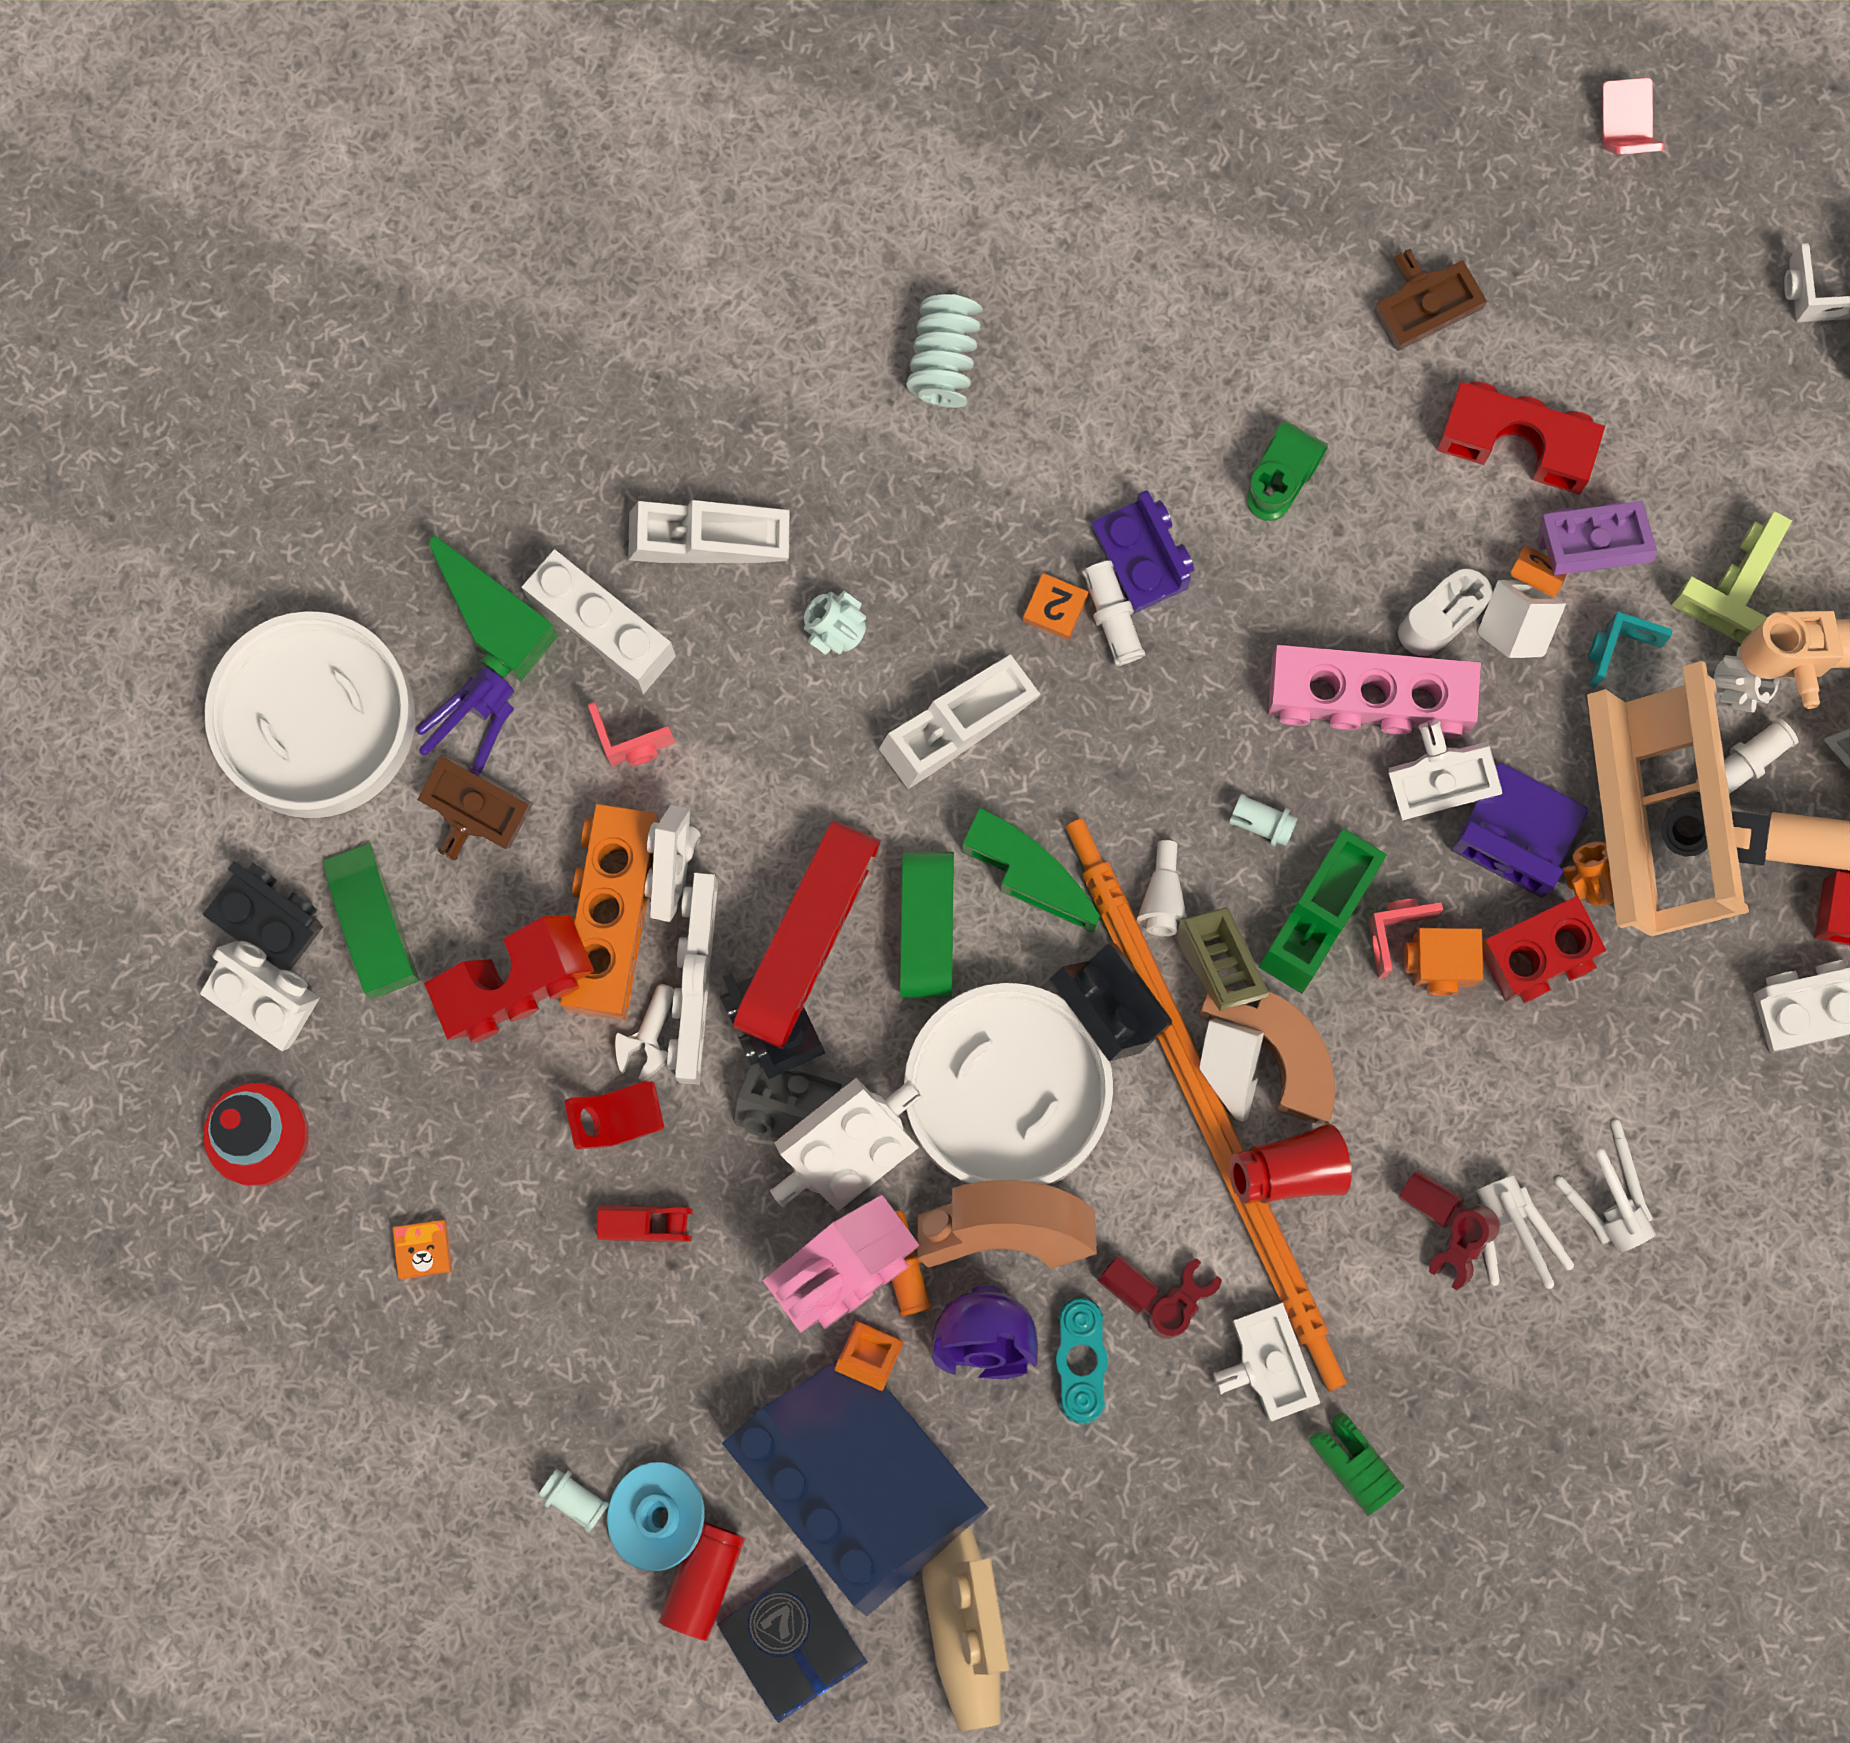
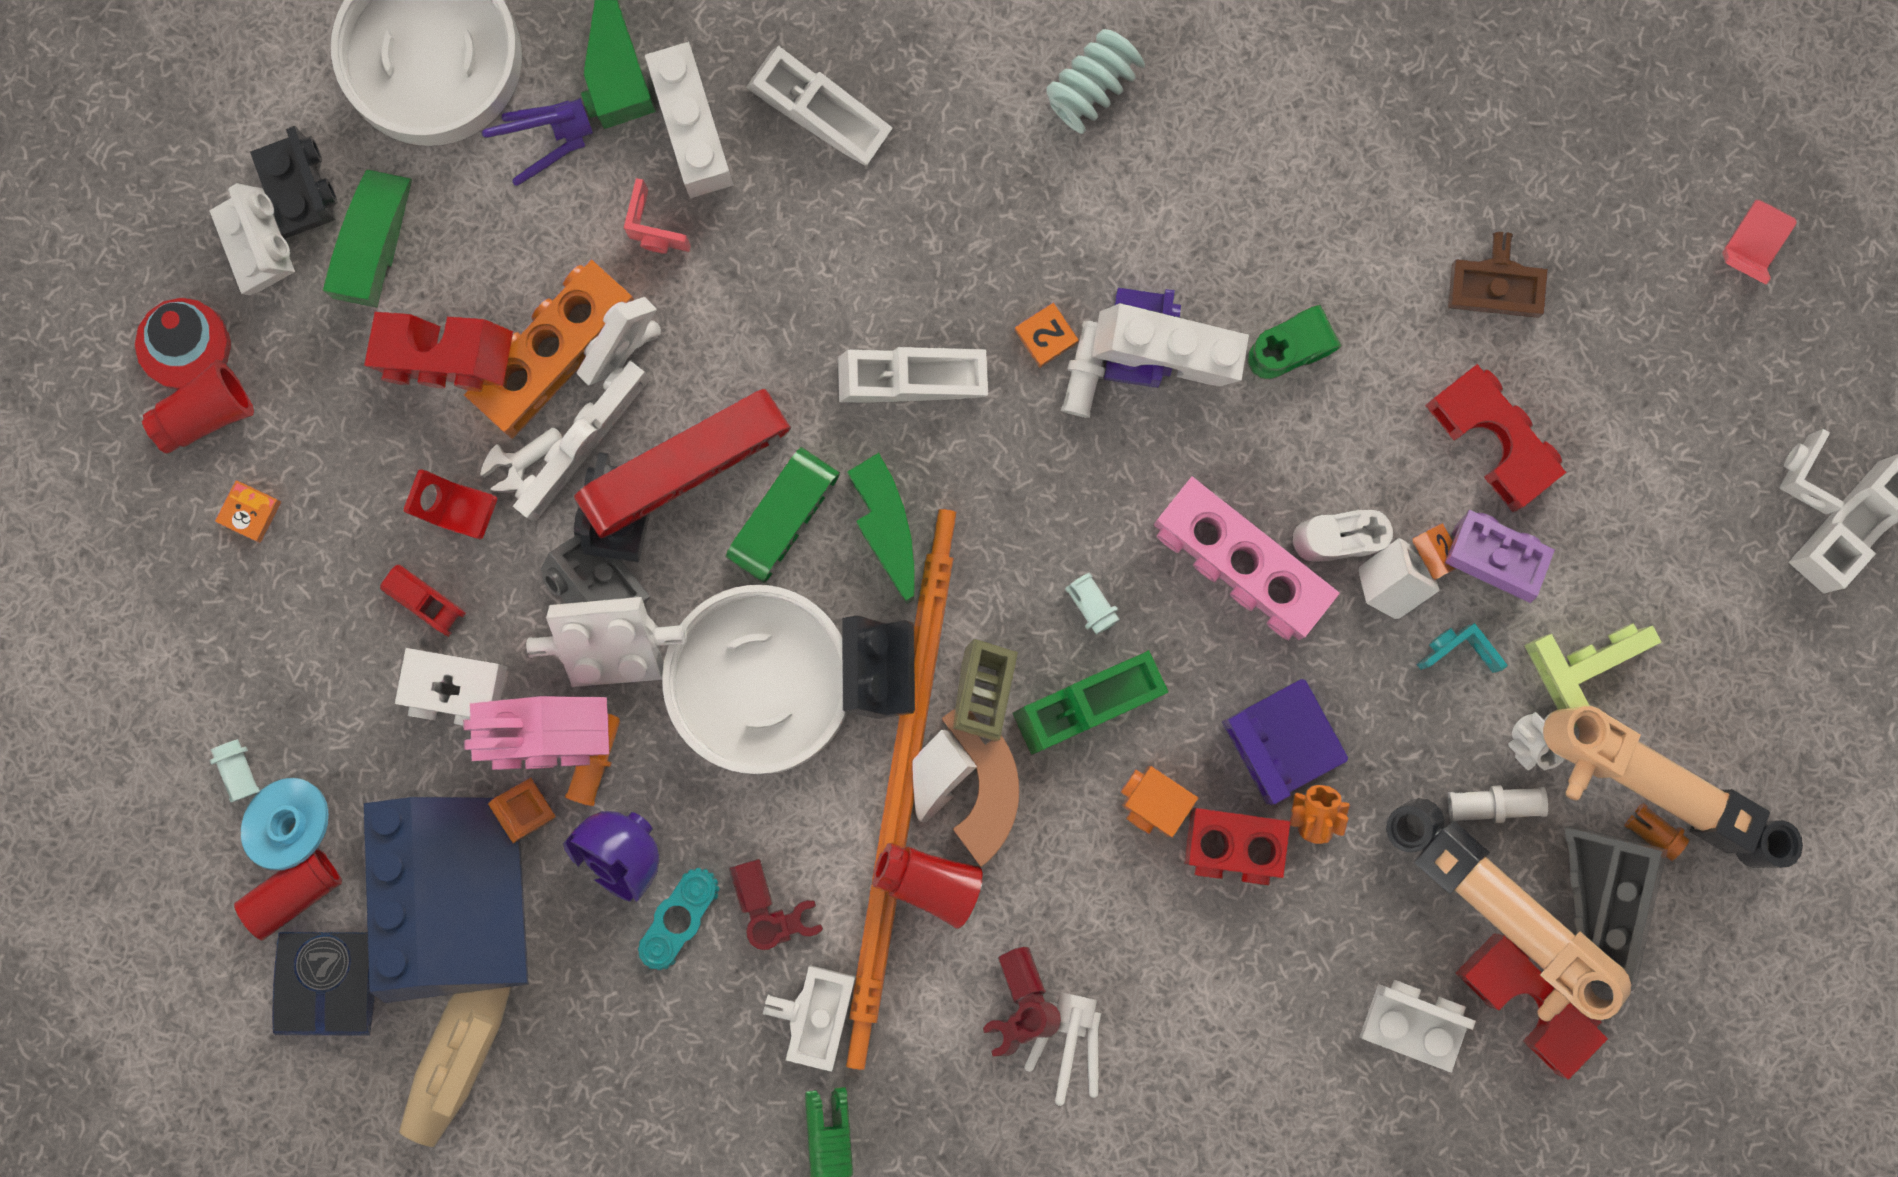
camera: 30 degrees right, 5 degrees up
(313, 1184) = (198, 409): none -> red plant
(472, 806) = (502, 200): reddish brown plate -> none
(694, 1285) = (427, 671): none -> white brick
(834, 622) = (867, 237): light aqua gear -> none
(1008, 1216) = (692, 779): nougat arch -> none
(1163, 901) = (974, 614): white cone -> none
(1200, 530) = (1153, 338): none -> white arch
(1397, 912) = (1145, 742): coral bracket -> none
(1444, 776) = (1252, 661): white plate -> none
(1630, 1219) = (1157, 1091): white plant -> none
(1641, 730) = (1410, 722): light nougat piece -> none

